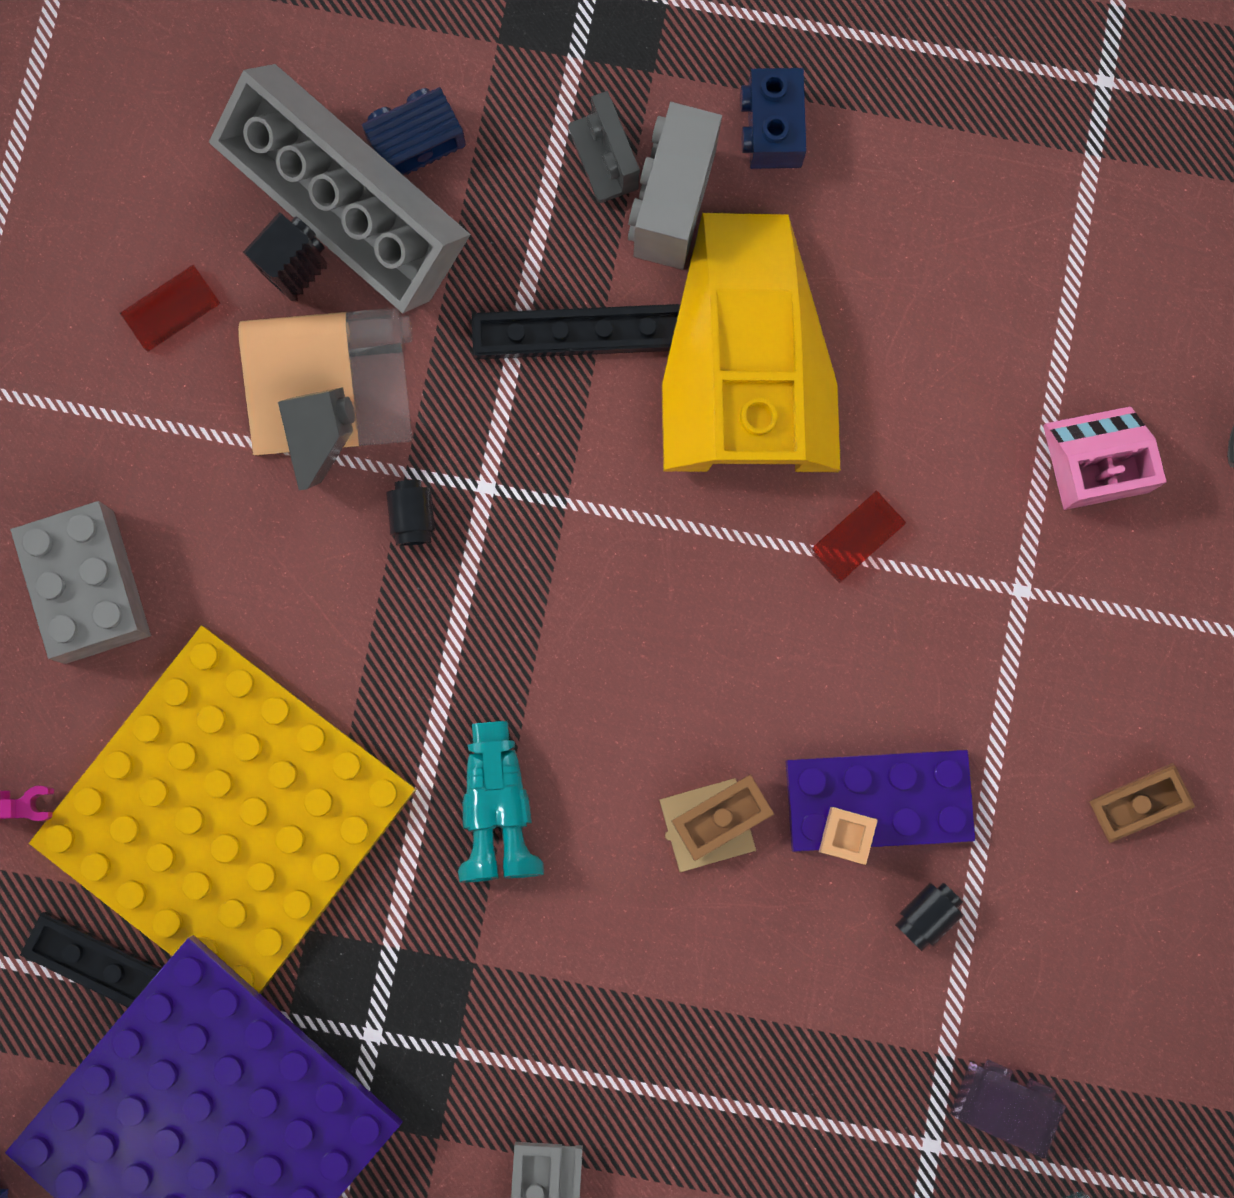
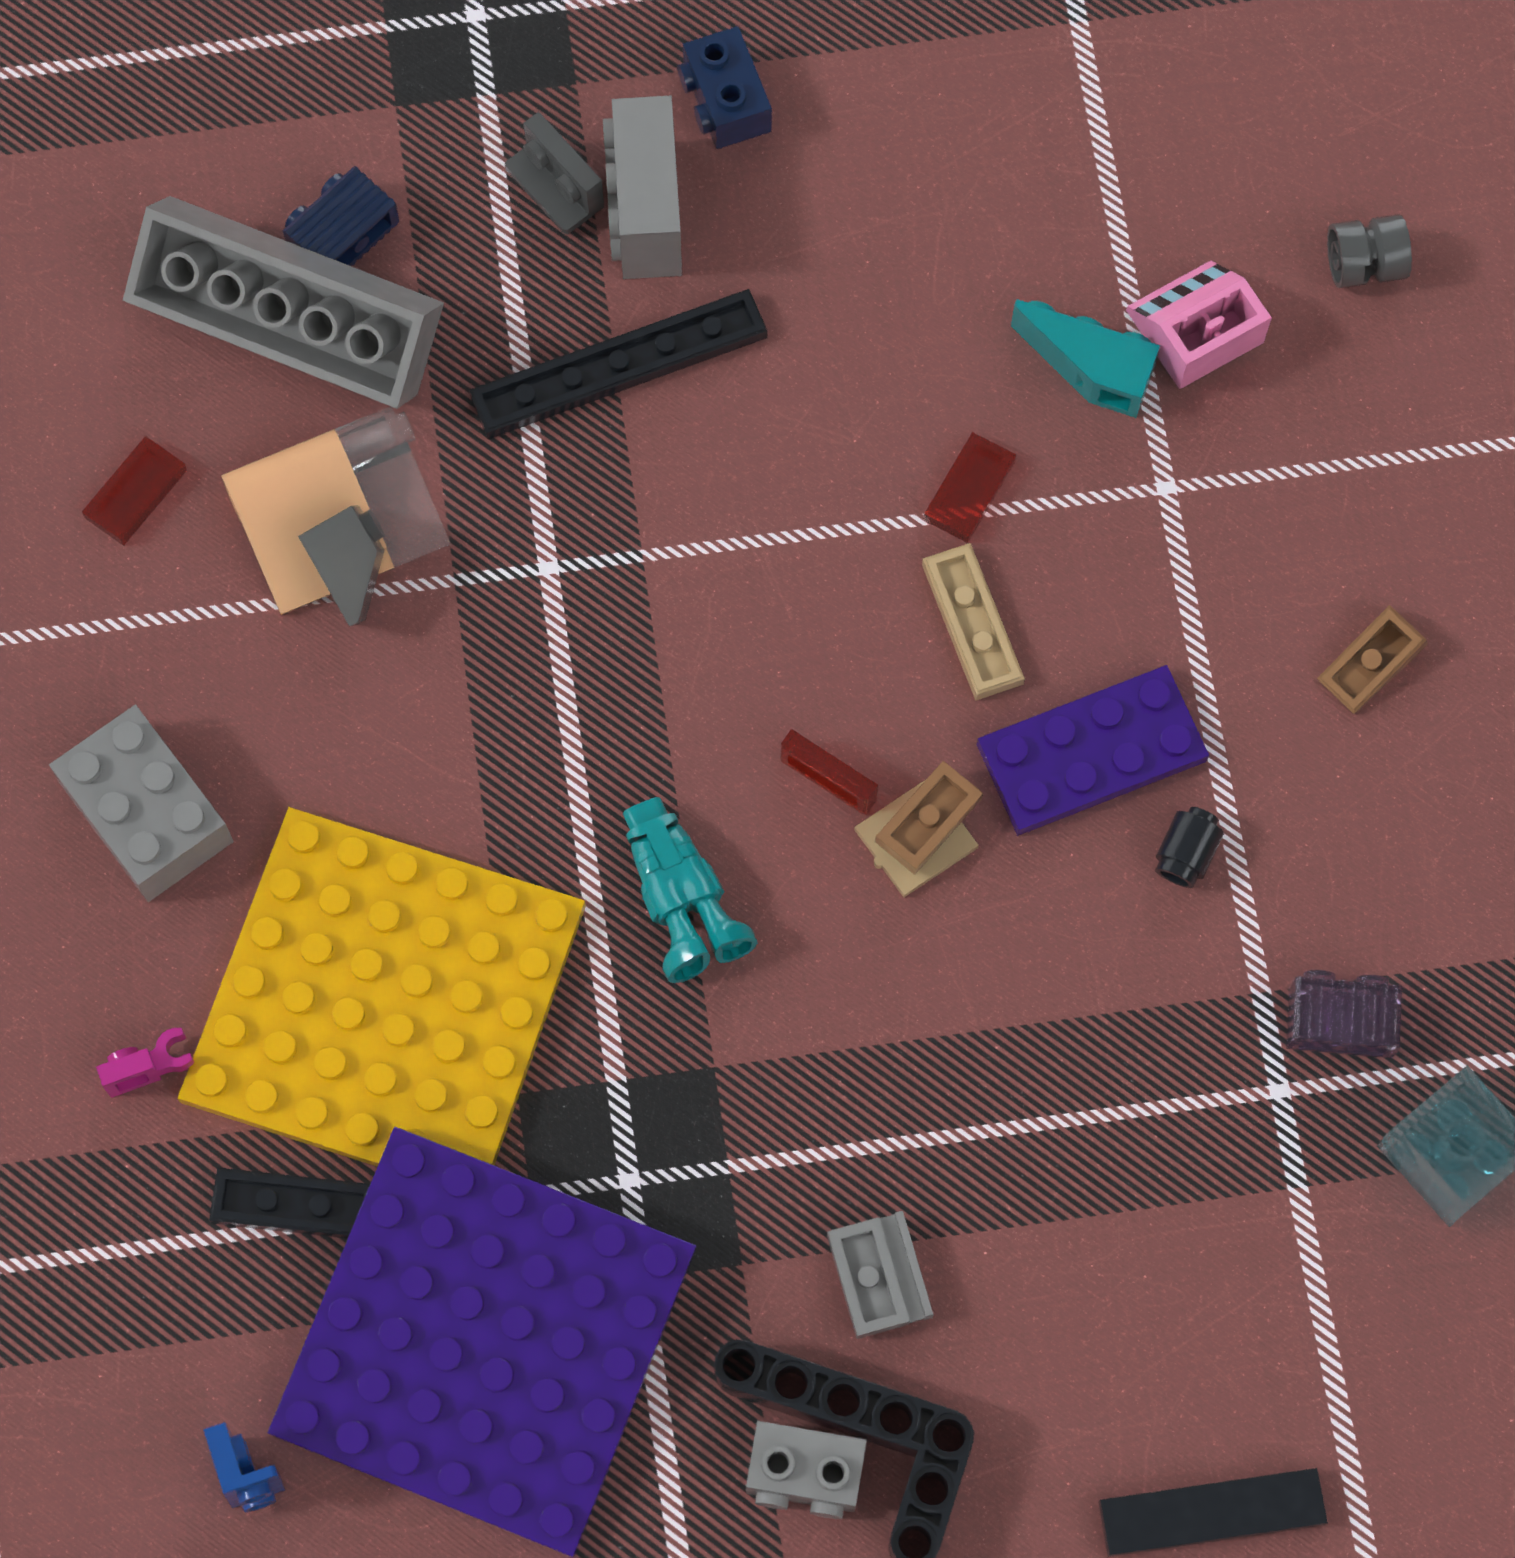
camera: 15 degrees left, 10 degrees down
(287, 255) = (250, 389): black brick -> none
(410, 513) = (477, 616): black brick -> none
(652, 748) = (828, 772): none -> clear red tile
(748, 355) = (784, 336): yellow wedge -> none
(819, 654) = (973, 621): none -> tan tile
(848, 835) = (1069, 786): light nougat plate -> none
(1001, 463) = (1096, 361): none -> teal slope

